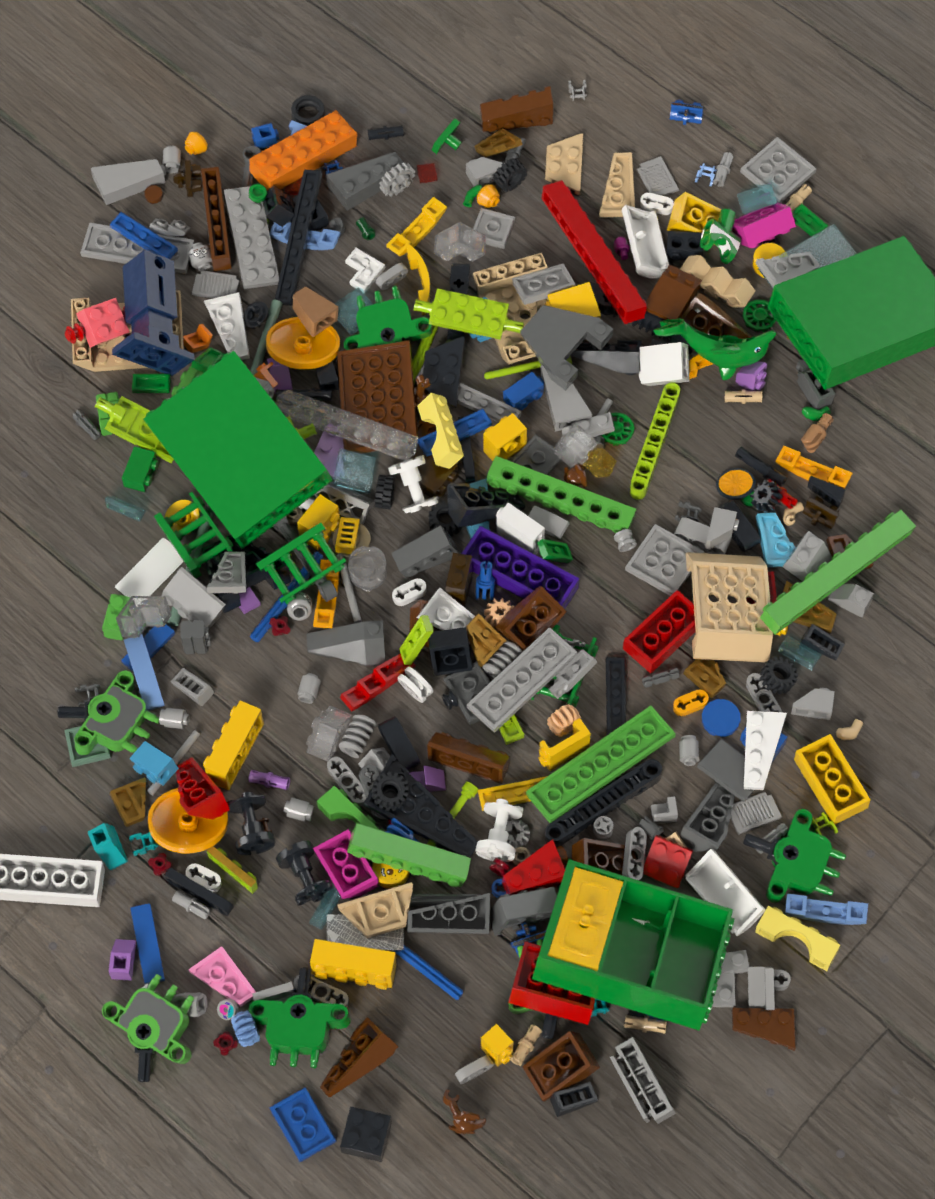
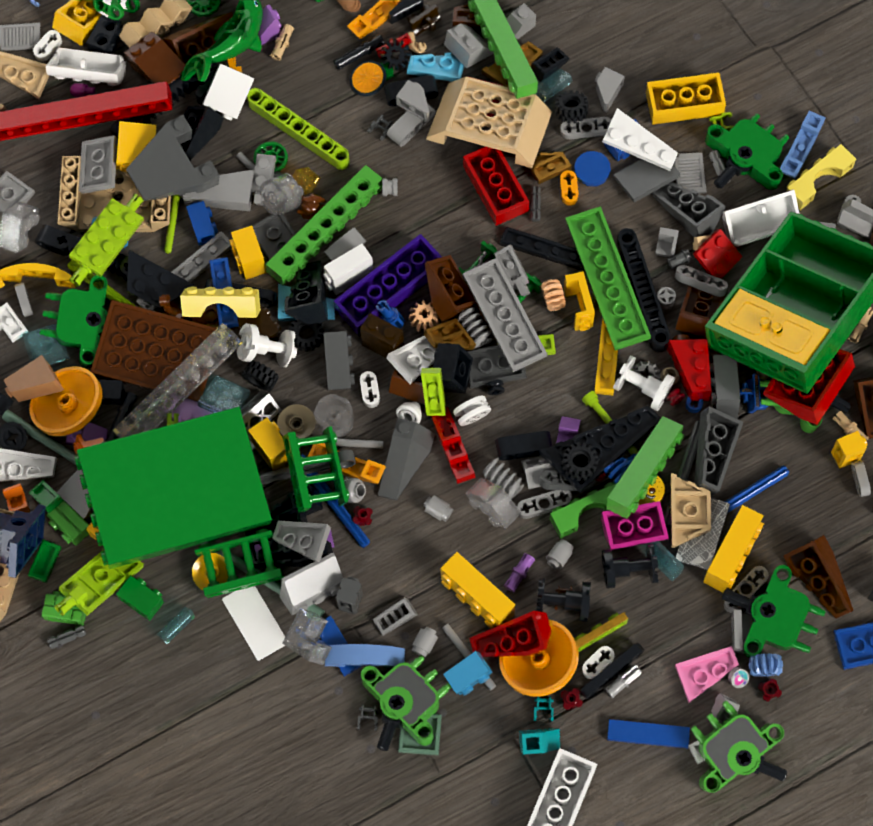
camera: 70 degrees left, 5 degrees up
(110, 625) = (296, 665): bright green brick -> none
(122, 959) = (659, 759): medium lavender slope -> none
(130, 801) = (497, 708): pearl gold wing -> none
(345, 547) = (309, 423): yellow slope -> none
(395, 633) = (409, 411): none -> white brick
(468, 757) = (560, 387): reddish brown slope -> none
(554, 551) = (380, 248): green plate -> none
(662, 560) = (422, 162): light grey plate -> none
(689, 750) = (616, 203): light grey brick -> none
(849, 732) = (643, 71): tan arm -> none

